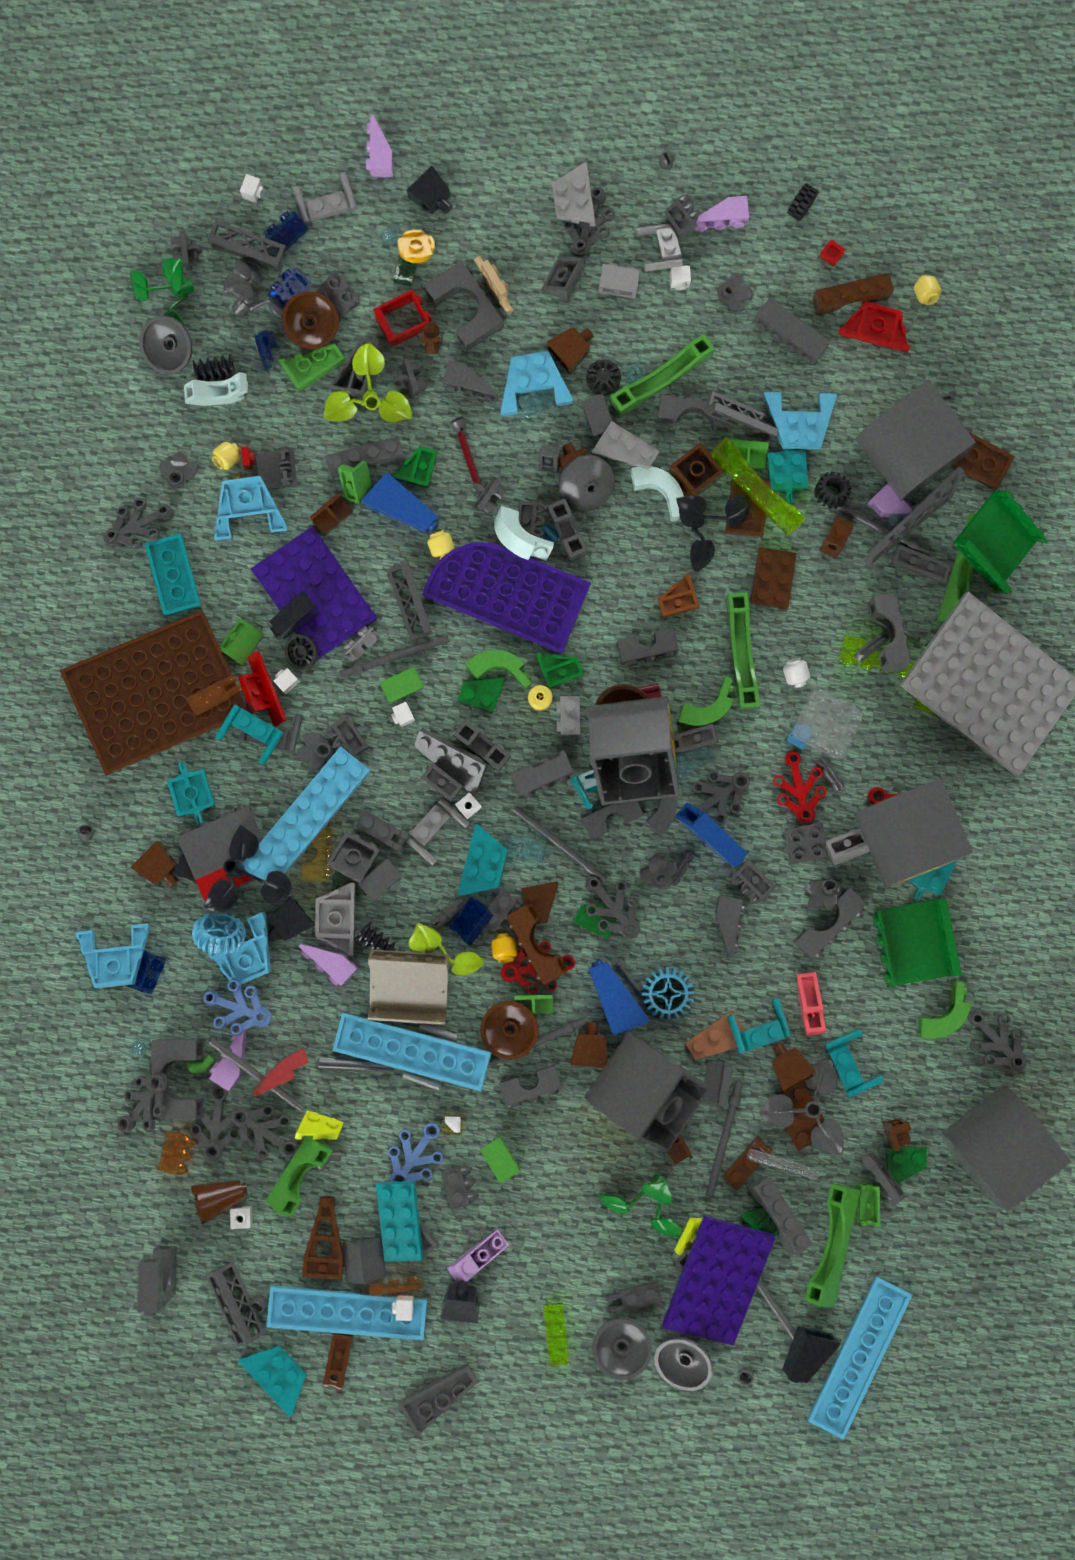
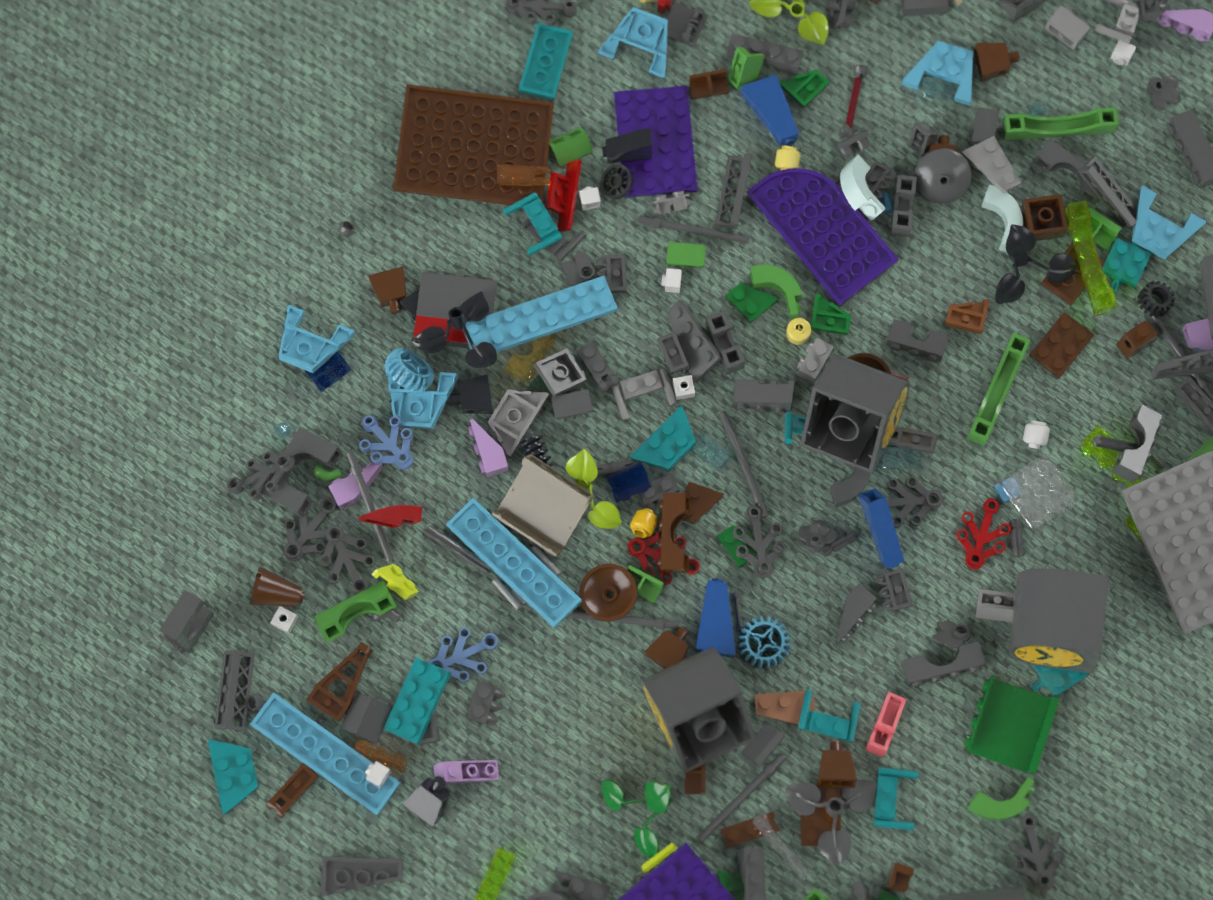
camera: 30 degrees right, 10 degrees down
(174, 1153) = (260, 534): clear orange plate -> none
(191, 793) = (454, 245): teal plate -> none
(452, 1124) = (511, 647): tile -> none
(463, 379) = (886, 36): dark grey slope -> none
(500, 1159) = (535, 698): bright green panel -> none
(547, 1083) = (614, 657): dark grey arch -> none
(596, 821) = (786, 461): dark grey arch -> none
(603, 377) = (1009, 98): pearl dark grey wheel -> none
(699, 717) = (925, 421): bright green arch -> none
(805, 843) = (961, 583): dark grey hinge -> none

